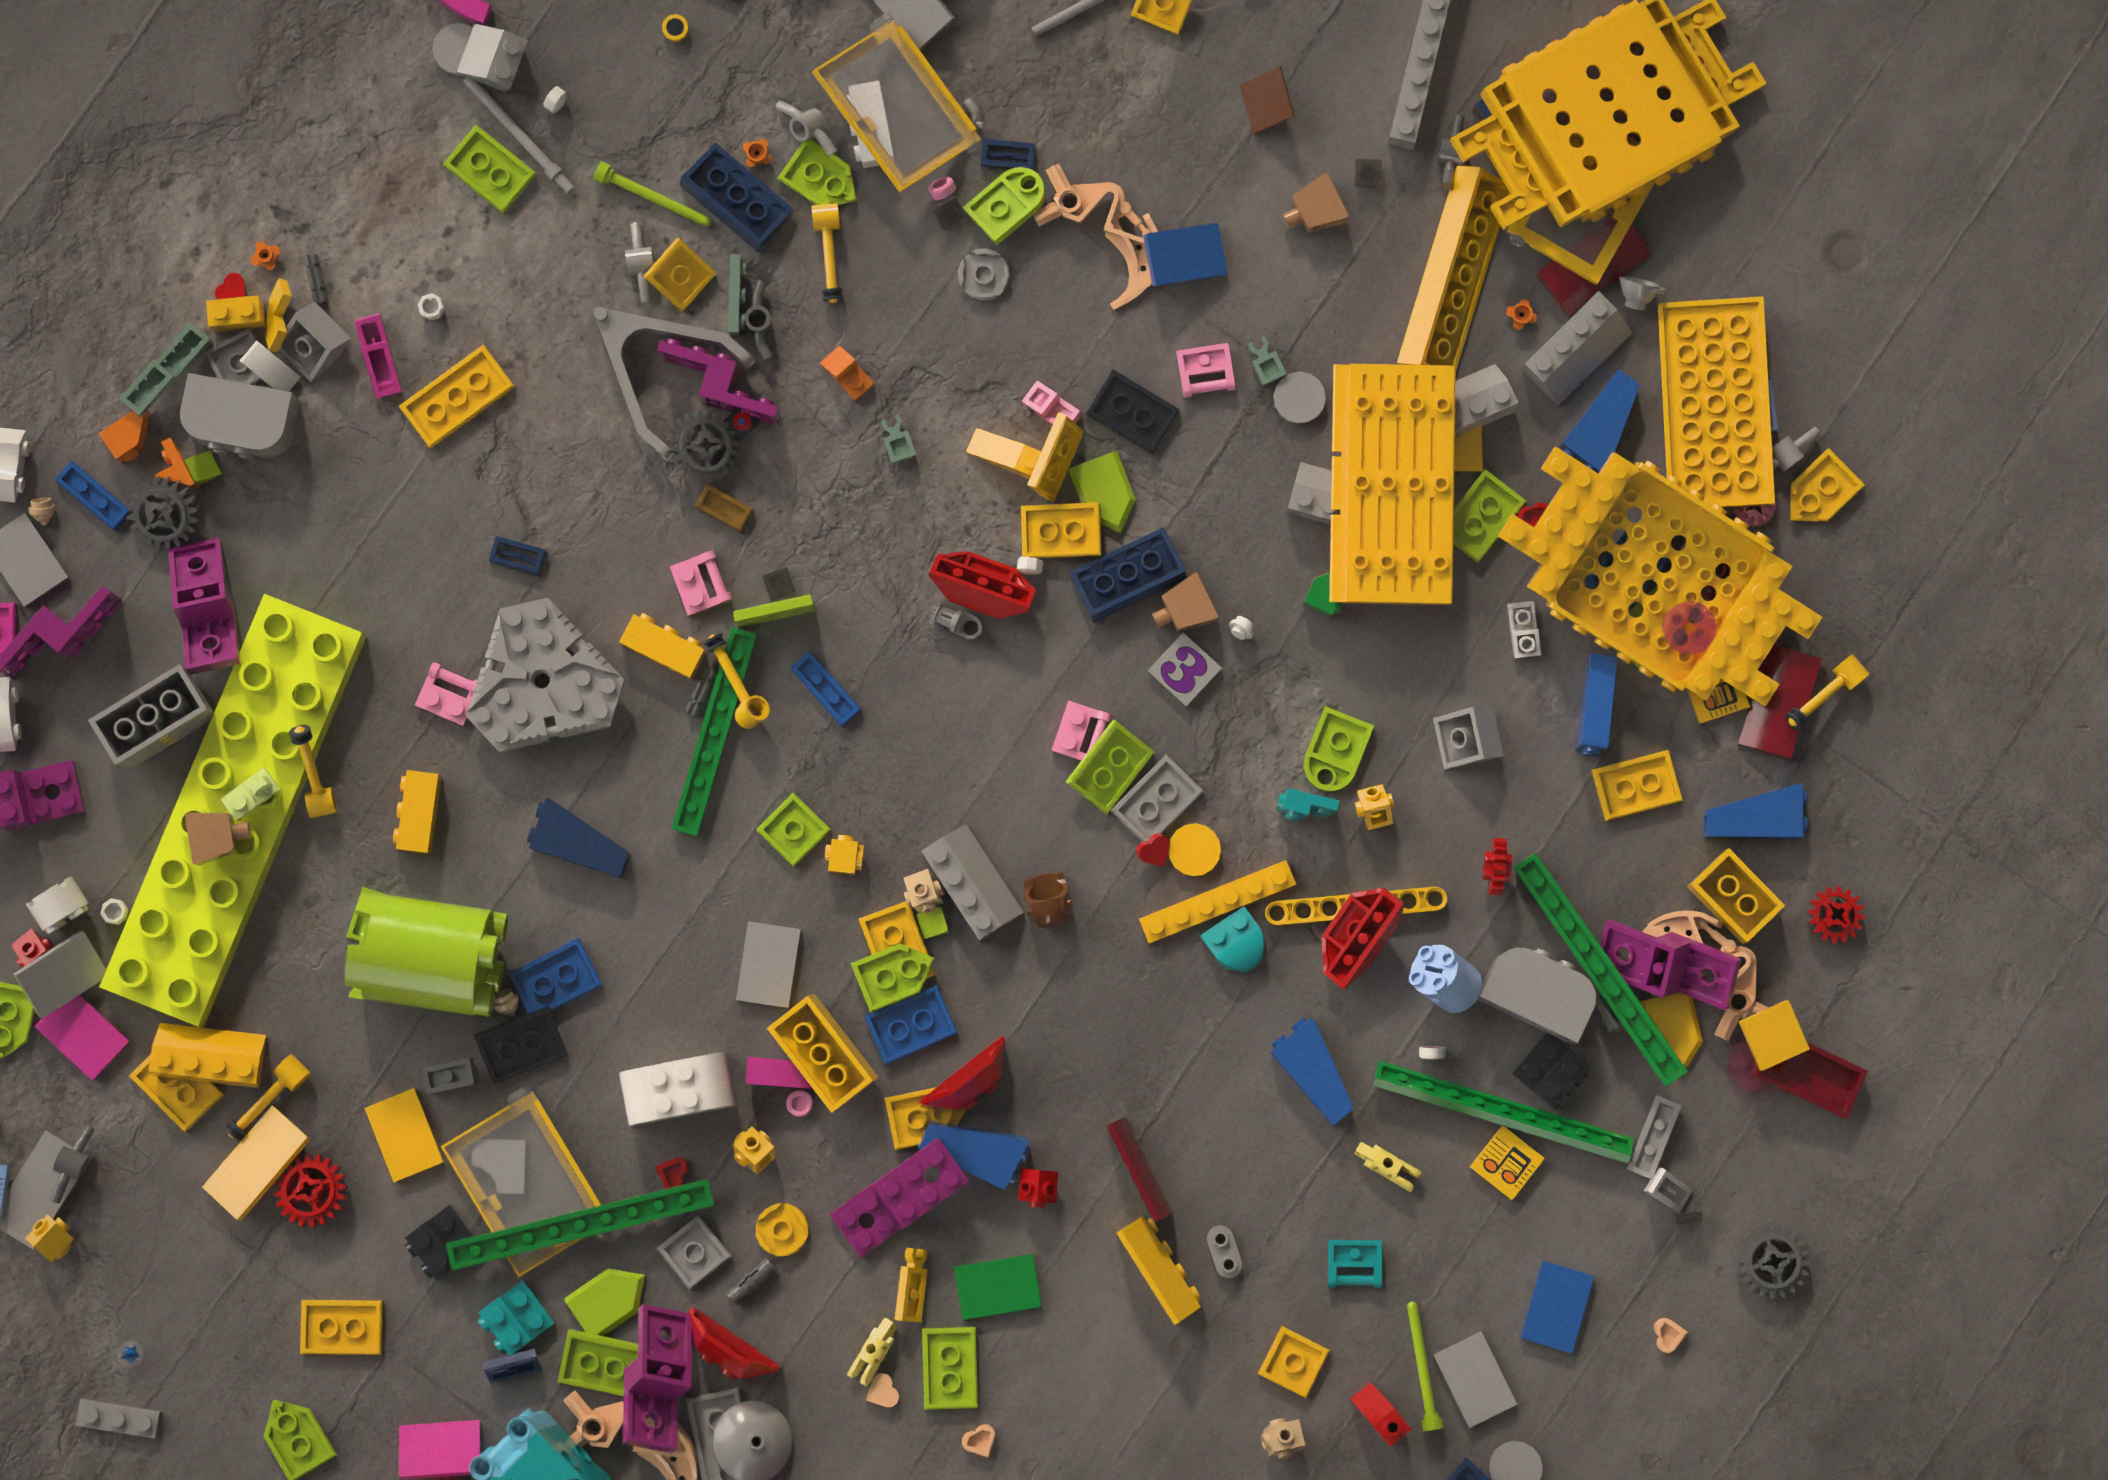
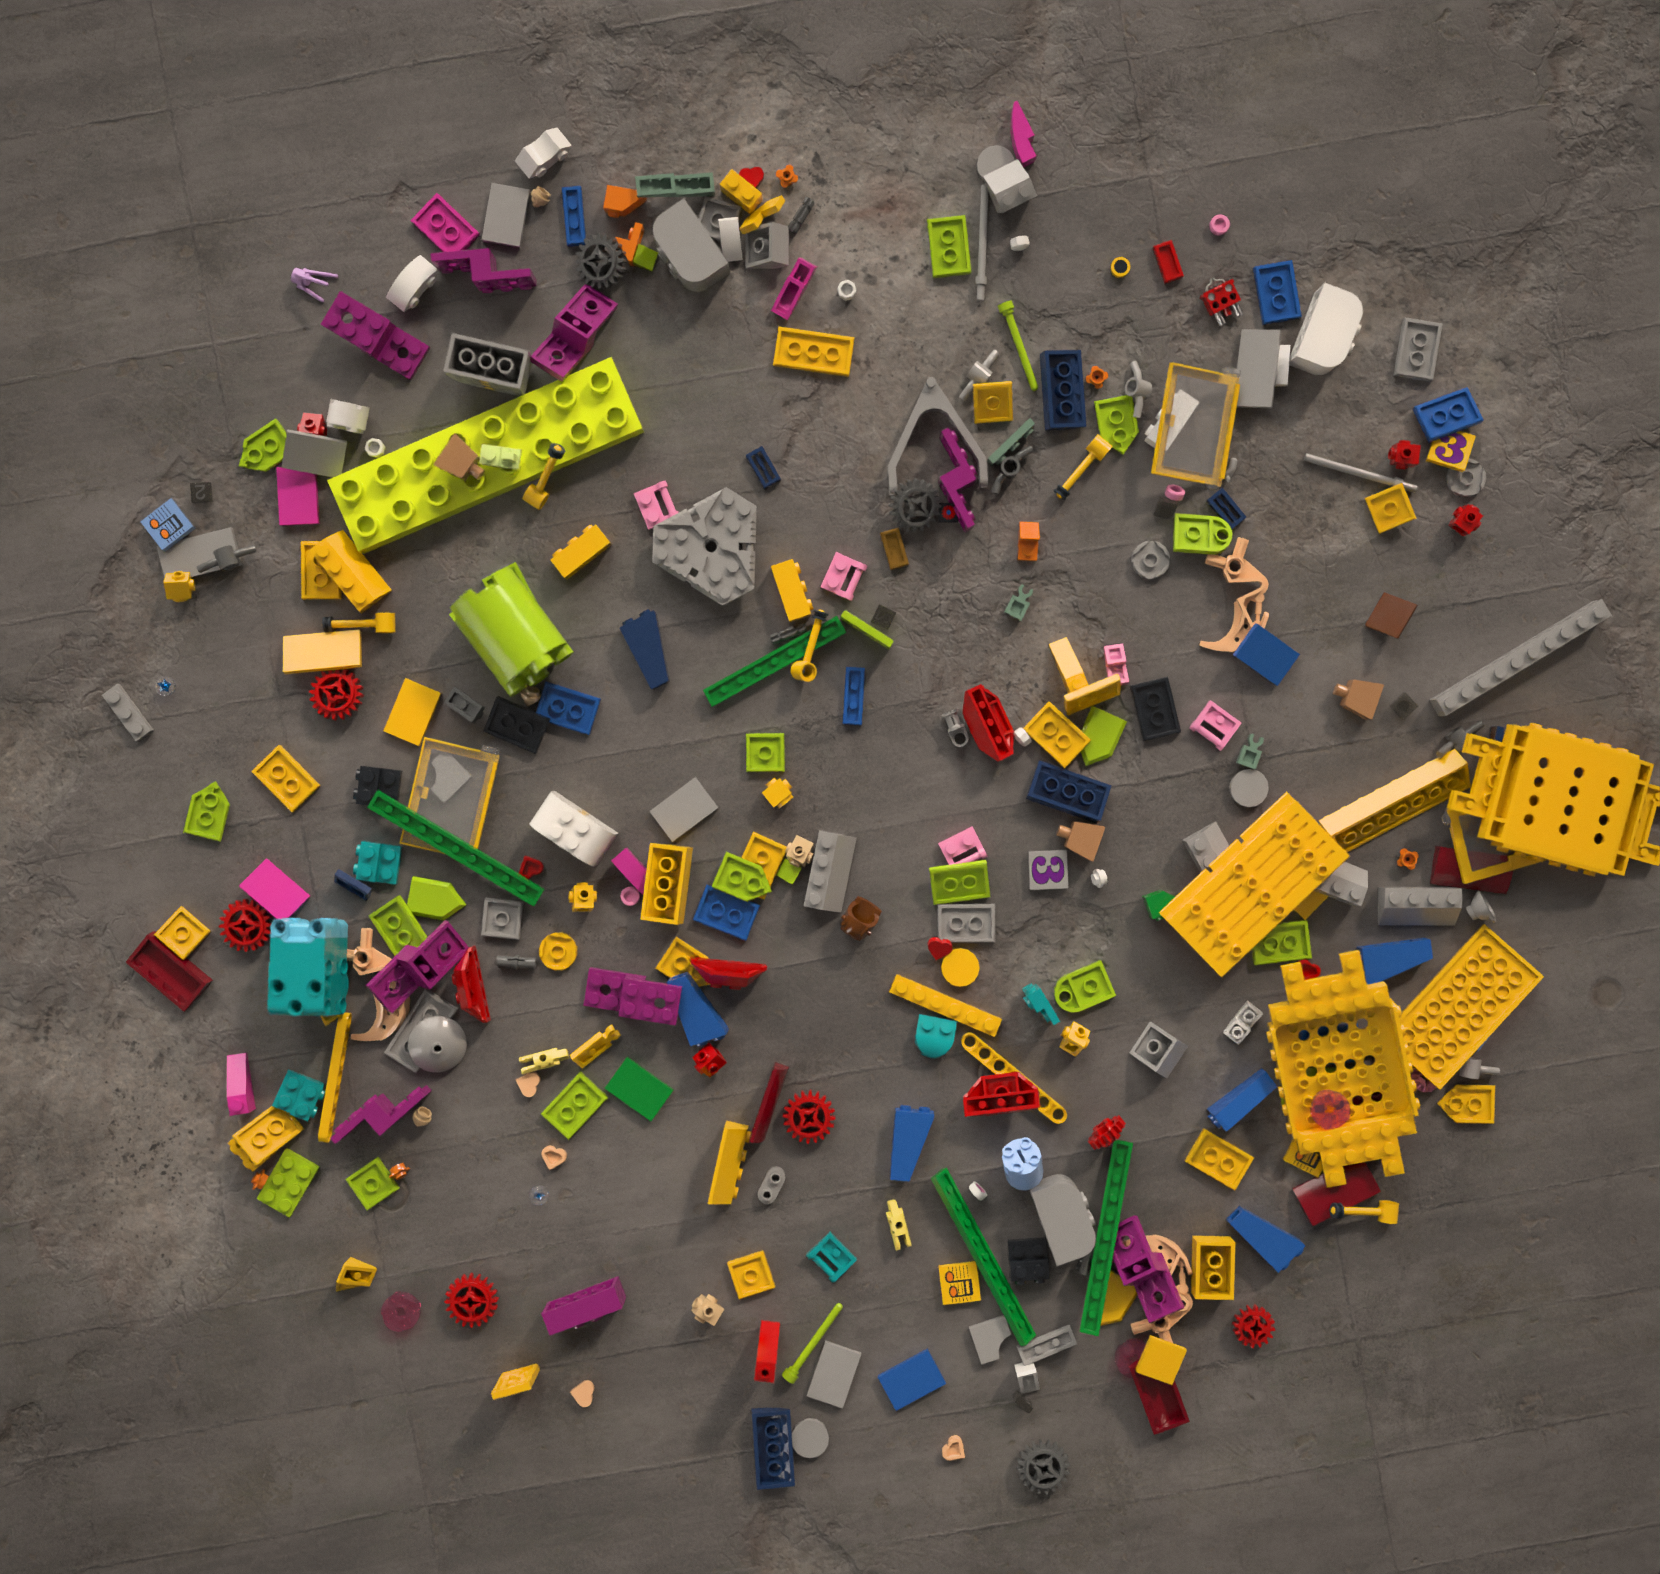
camera: 45 degrees right, 5 degrees up
(1169, 1147) = (802, 1110): none -> red gear
(1590, 1188) = (989, 1336): none -> light grey tile

